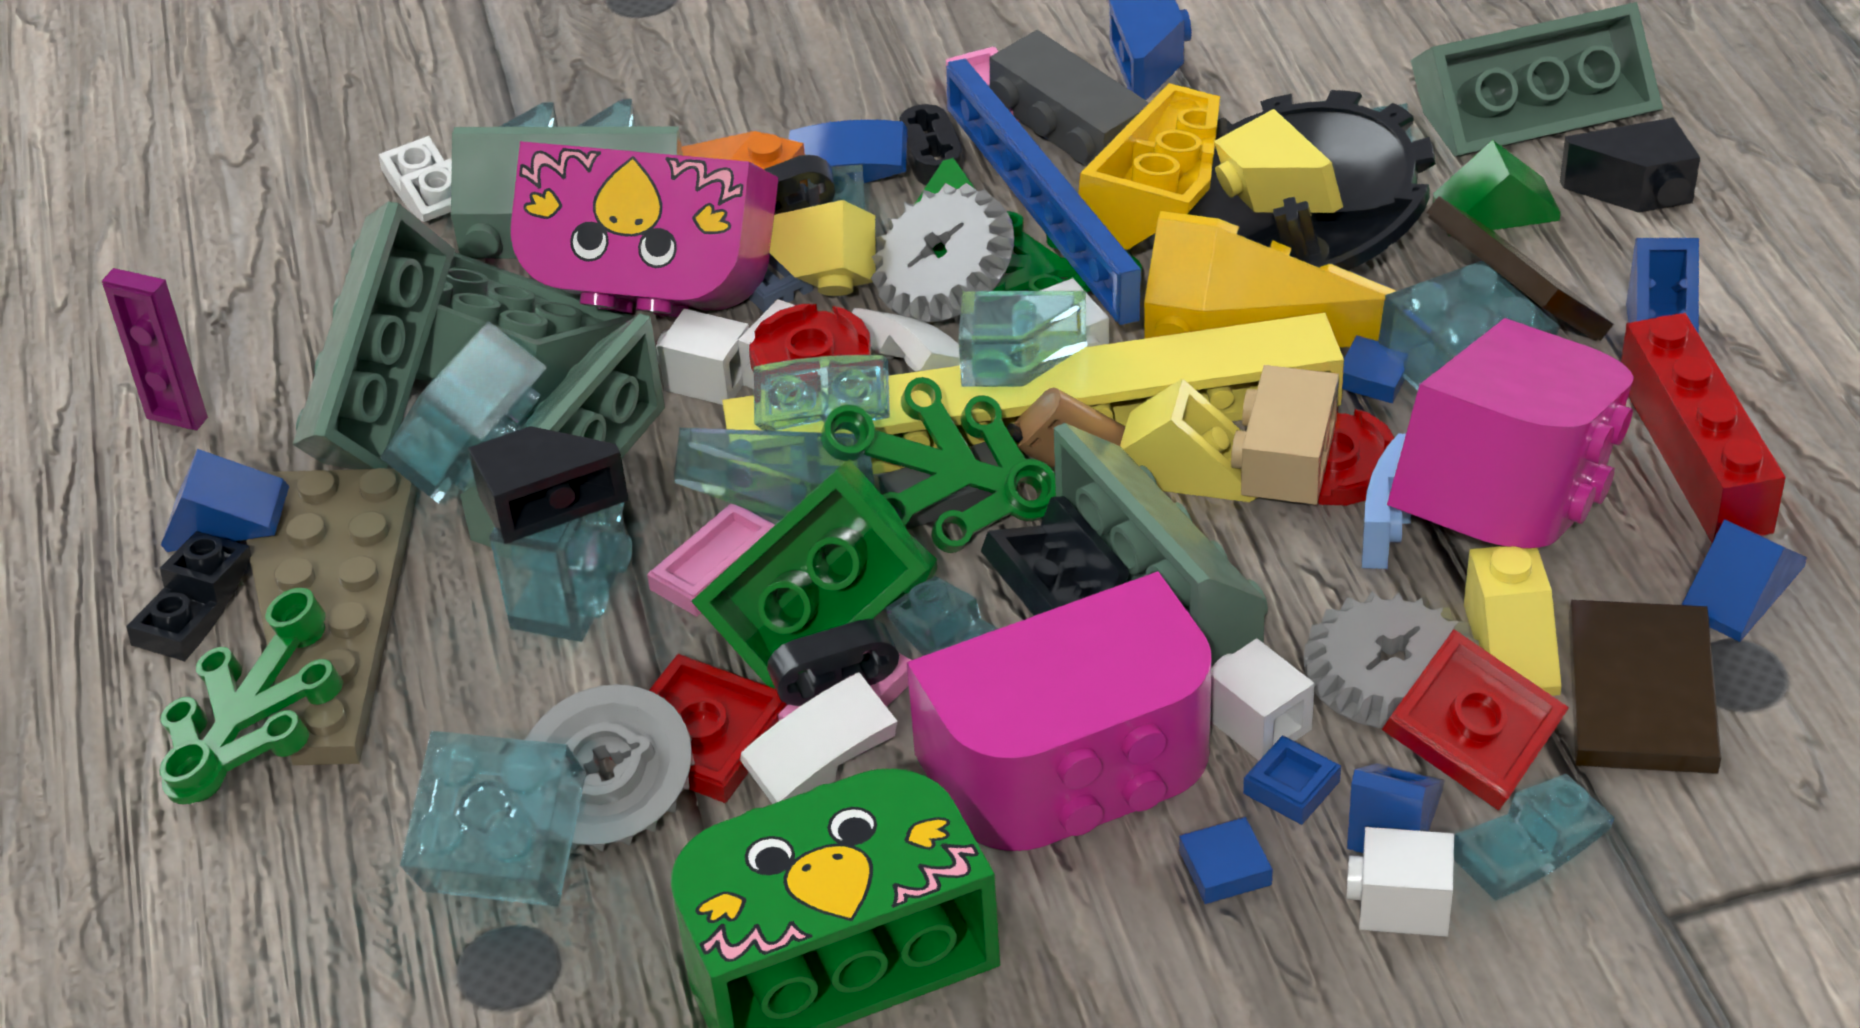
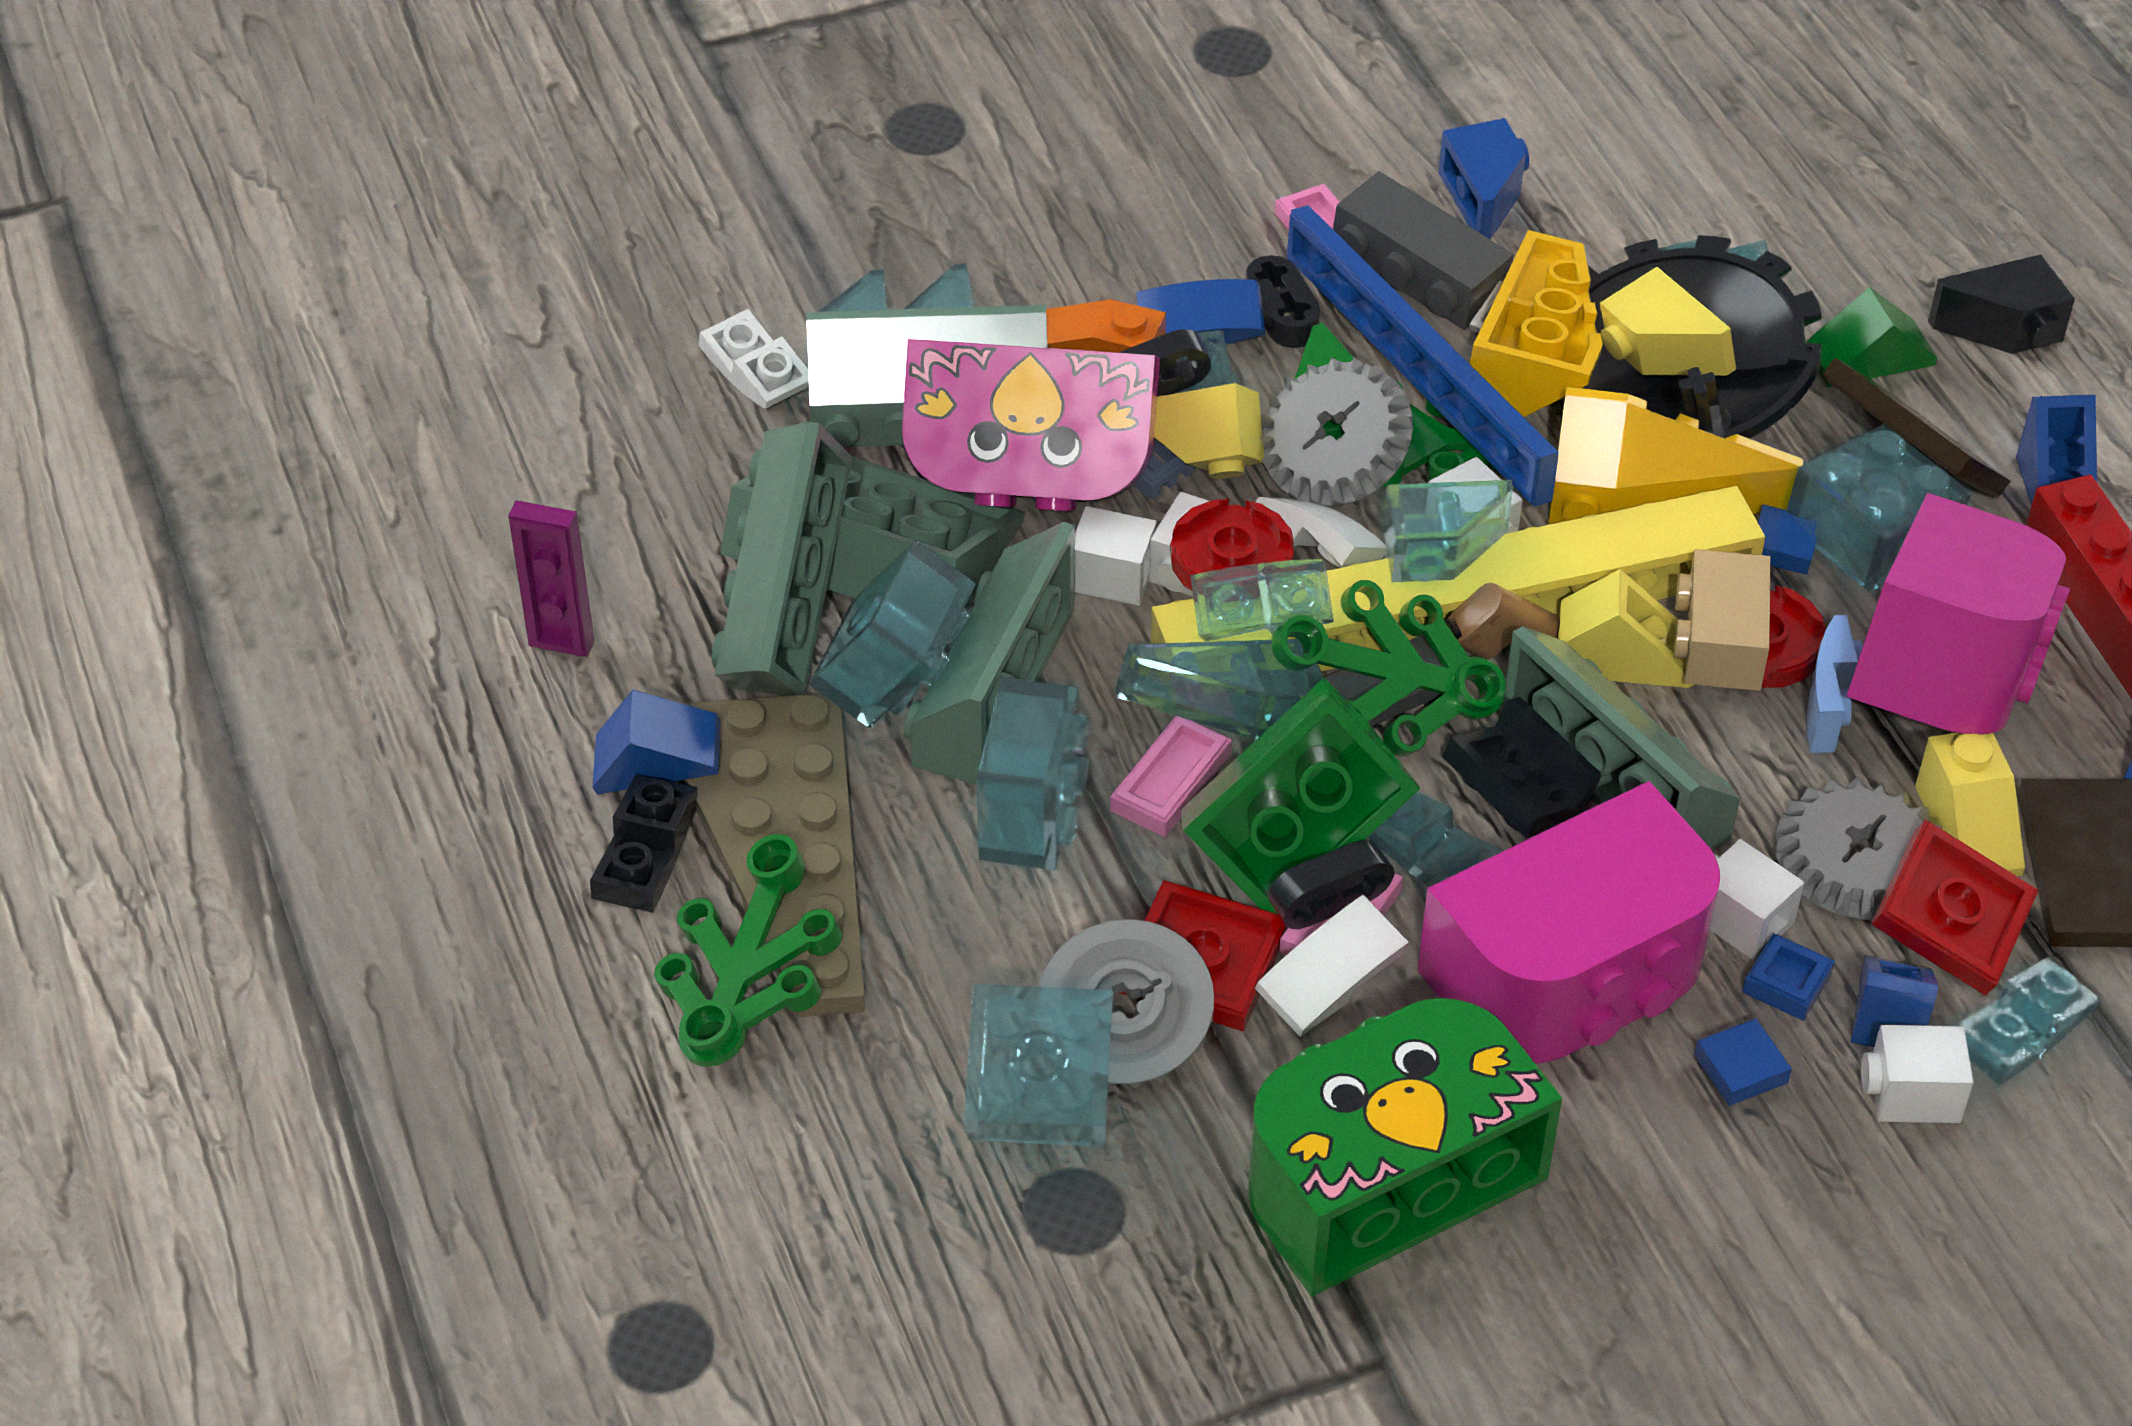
camera: 10 degrees left, 5 degrees up
(545, 479) = (1026, 715): black slope -> none
(1538, 79) = (1893, 212): sand green slope -> none

